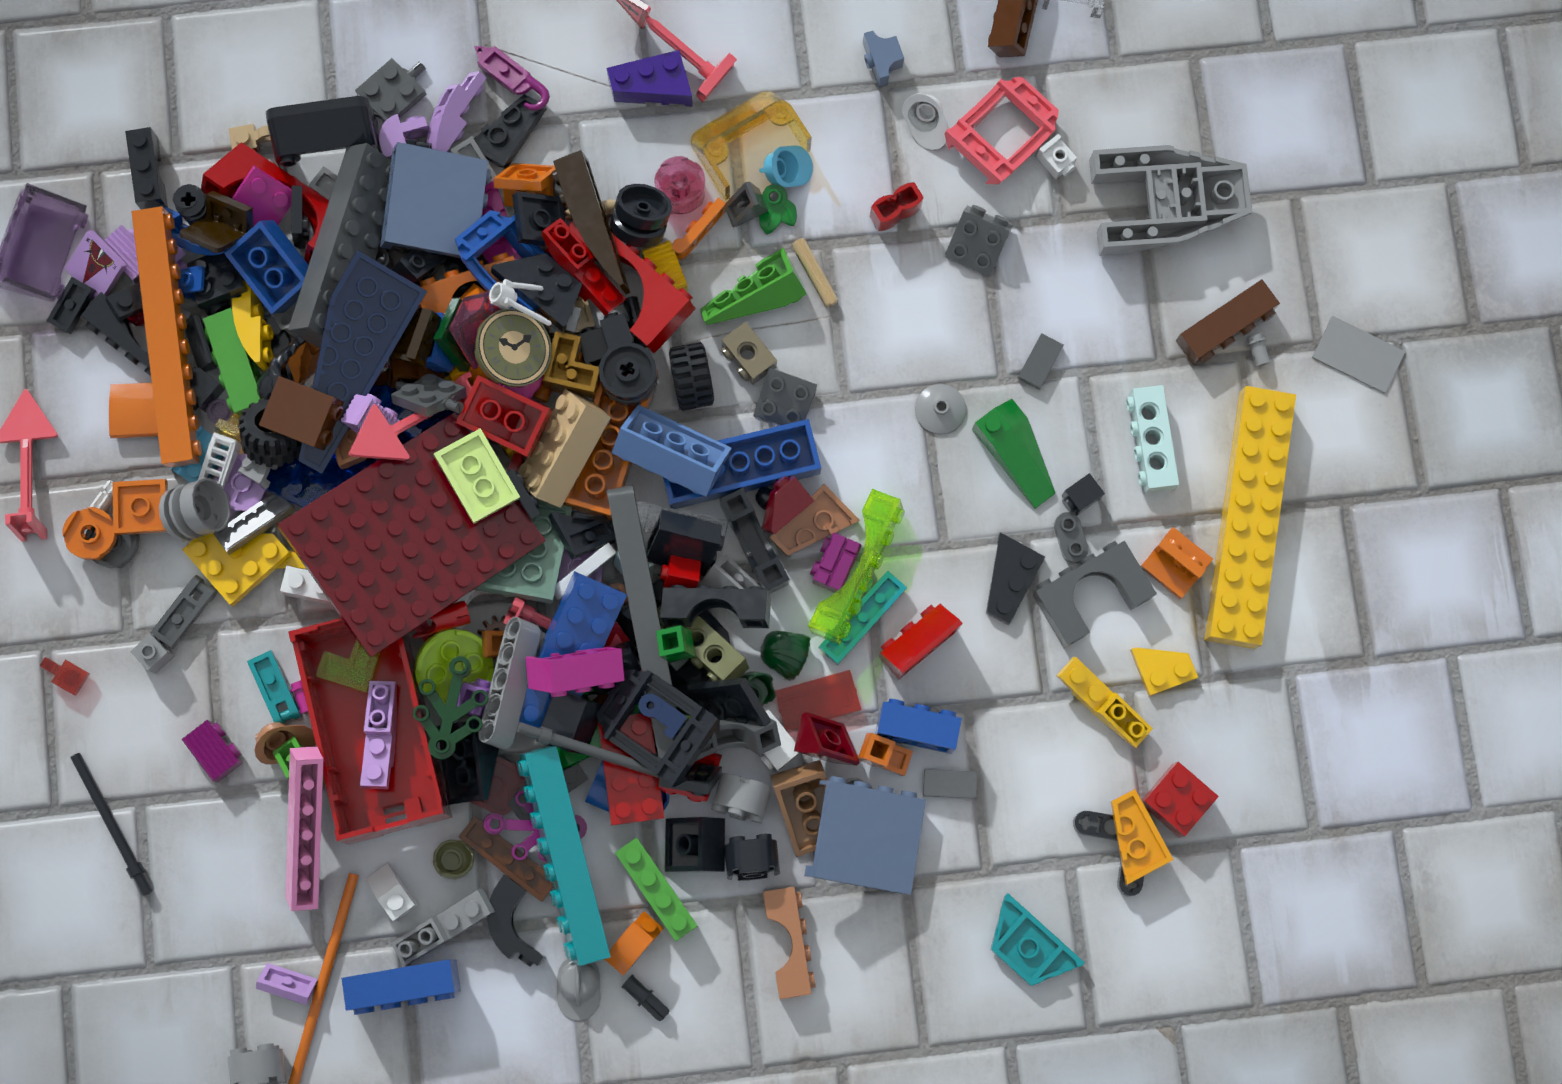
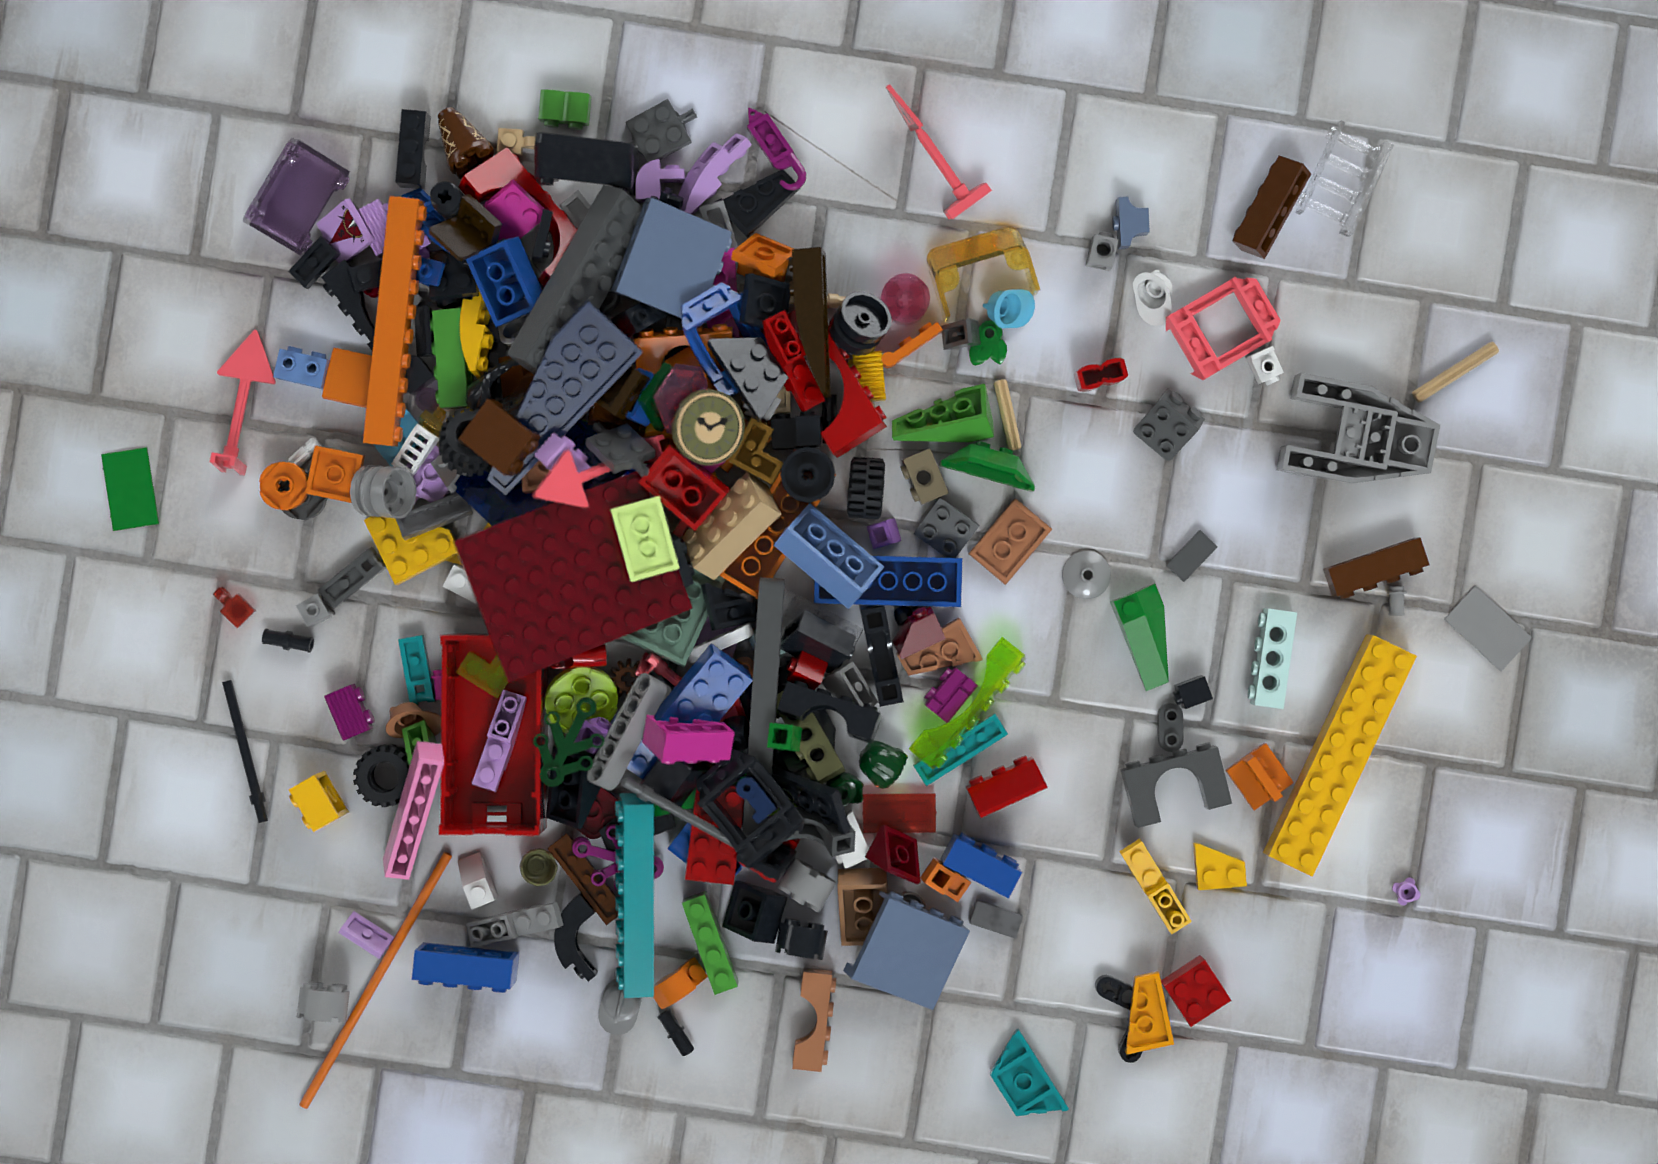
camera: 25 degrees right, 10 degrees up
(81, 413) = (301, 368): none -> medium blue brick
(130, 694) = (288, 640): none -> black pin
(194, 148) = (462, 143): none -> reddish brown cone
(200, 851) = (317, 801): none -> yellow brick
(246, 800) = (365, 774): none -> black tyre
(290, 89) = (564, 108): none -> bright green brick
(491, 643) = (621, 687): dark orange tile -> none
(504, 297) = (714, 380): white plant -> none
(651, 80) = (906, 188): dark purple wedge -> none
(722, 422) = (884, 533): none -> medium lavender slope
(811, 324) = (991, 465): none -> green wedge
(853, 396) = (1010, 541): none -> nougat tile
(859, 100) = (1102, 262): none -> light grey brick
(1011, 577) = (1106, 749): black wing -> none
(1245, 116) = (1455, 372): none -> tan axle
(1362, 631) = (1413, 893): none -> lavender plate

